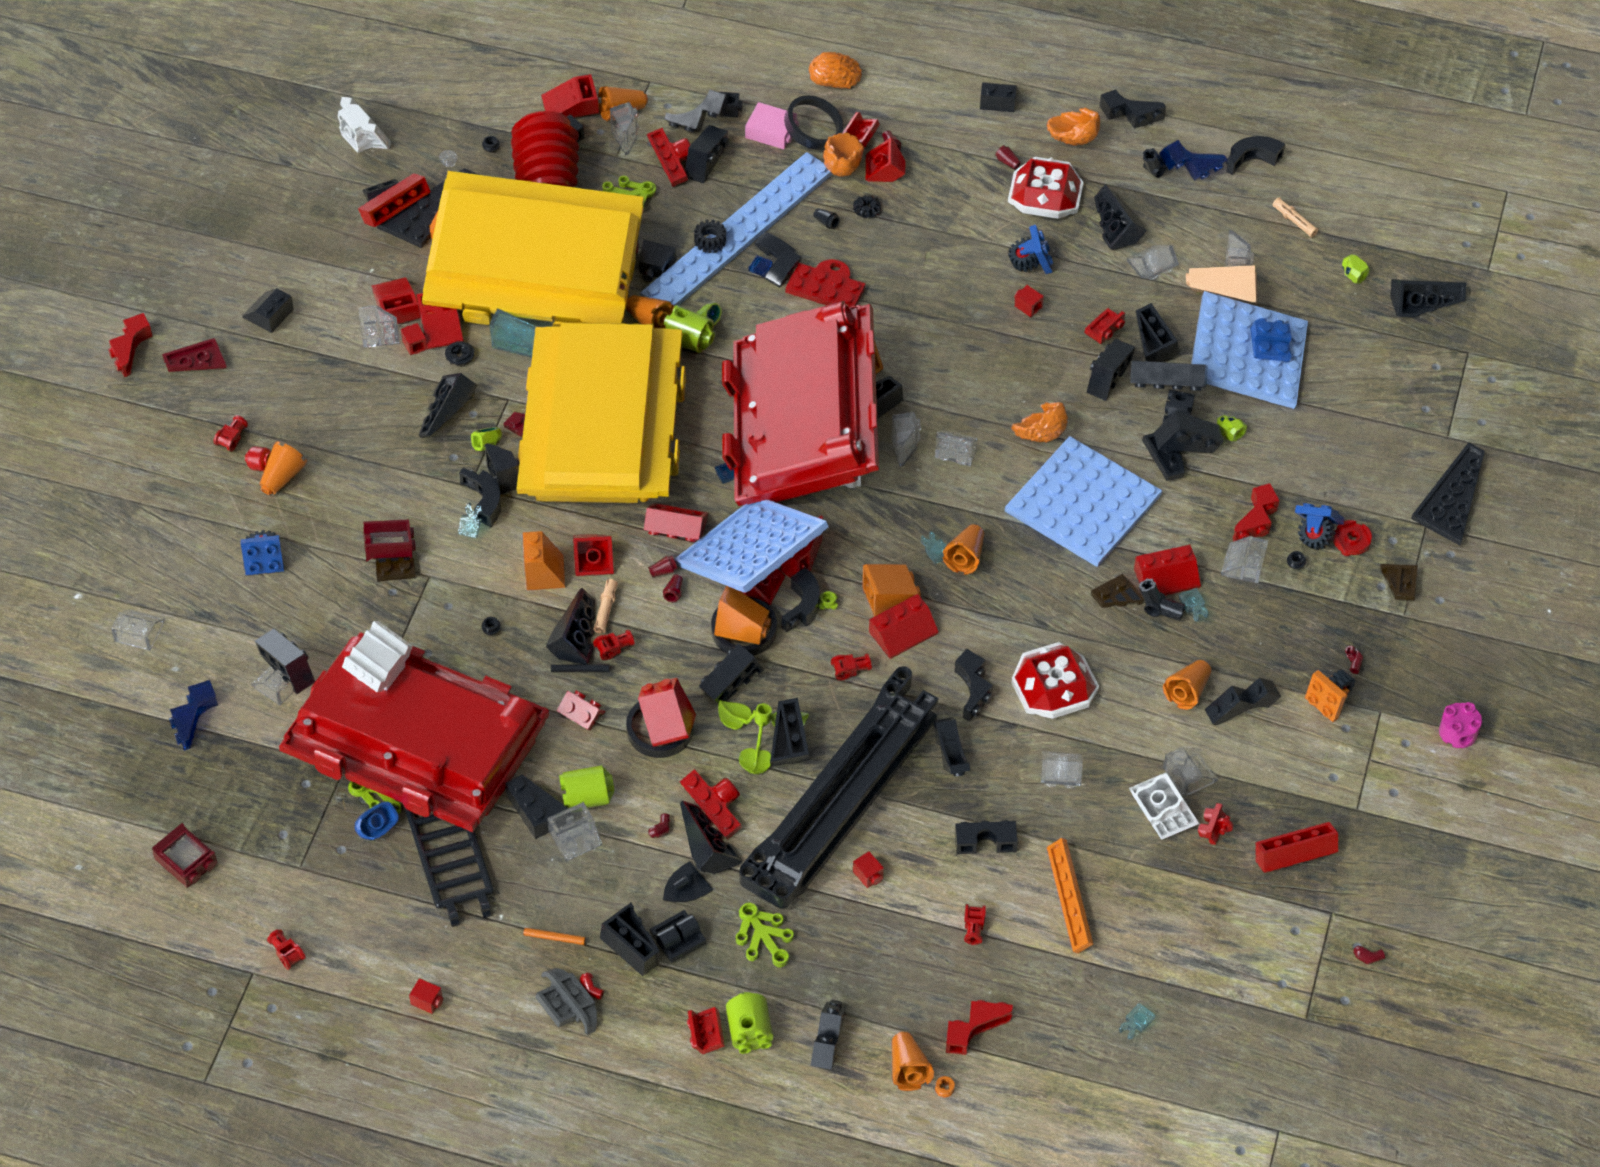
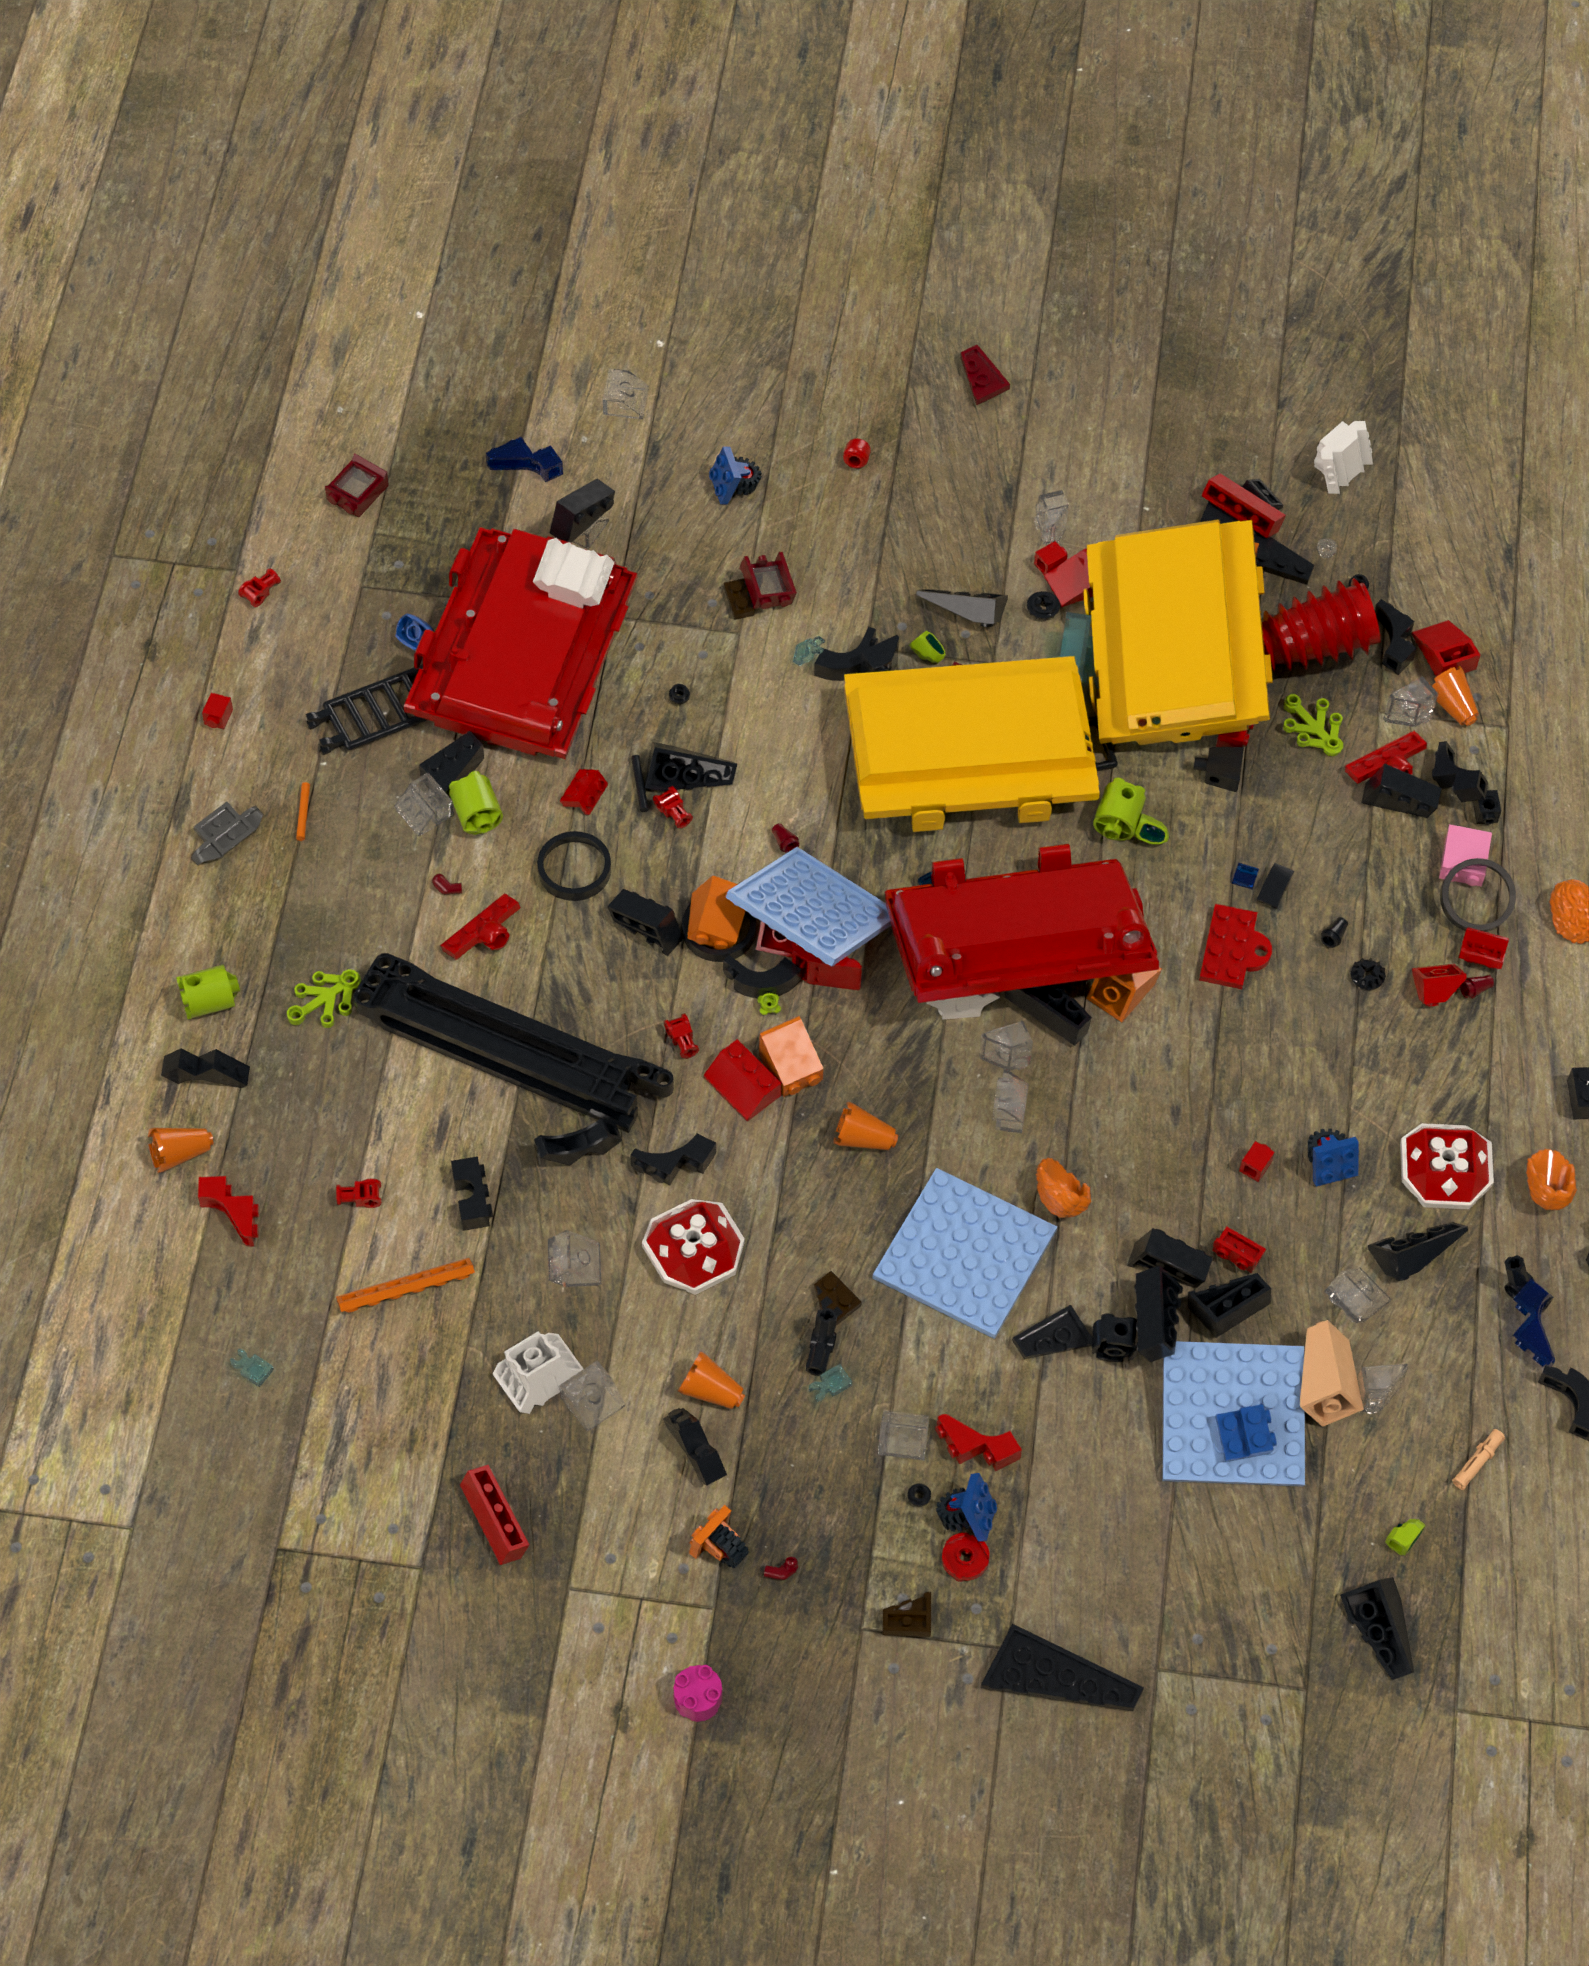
camera: 80 degrees right, 5 degrees up
(123, 347) = (979, 312): red arch -> none
(230, 435) = (885, 423): red connector -> none
(270, 310) = (1061, 426): black slope -> none
(281, 468) = (846, 472): orange cone -> none
(397, 299) = (1096, 527): red slope -> none
(542, 562) = (761, 719): orange slope -> none
(587, 983) = (243, 849): red arm -> none
(593, 554) = (786, 765): red slope -> none
(607, 599) = (717, 792): light nougat pin -> none
(630, 940) = (298, 873): black wedge -> none
(649, 310) = (1139, 768): orange cone -> none
(666, 711) = (574, 858): slope -> none
(673, 589) = (757, 852): dark red cone -> none
(675, 522) = (849, 840): slope -> none
(678, 935) = (311, 917): black plate -> none
(686, 885) = (380, 920): black shield -> none
(705, 842) = (424, 931): black wedge -> none
(705, 1030) = (199, 955): red bracket -> none
(710, 243) = (1269, 802): black tyre -> none
(735, 715) = (599, 934): lime plant -> none
(741, 230) = (1293, 847): light blue plate -> none
(782, 267) = (1246, 896): black slope -> none
(789, 735) = (571, 981): black wedge -> none
(842, 154) = (1433, 931): orange hair -> none
(868, 869) = (413, 1083): red brick -> none
(933, 548) = (868, 1102): clear light blue plate -> none
(942, 1092) = (160, 1183): orange bush -> none
(1006, 156) = (1488, 1115): dark red cone -> none
(1171, 569) = (871, 1349): red slope -> none
(1188, 434) = (1077, 1353): black wedge -> none
(1218, 824) = (519, 1429): red hips -> none
(1231, 427) = (1110, 1406): lime rock -> none
(1367, 956) = (361, 1606): dark red arm -> none

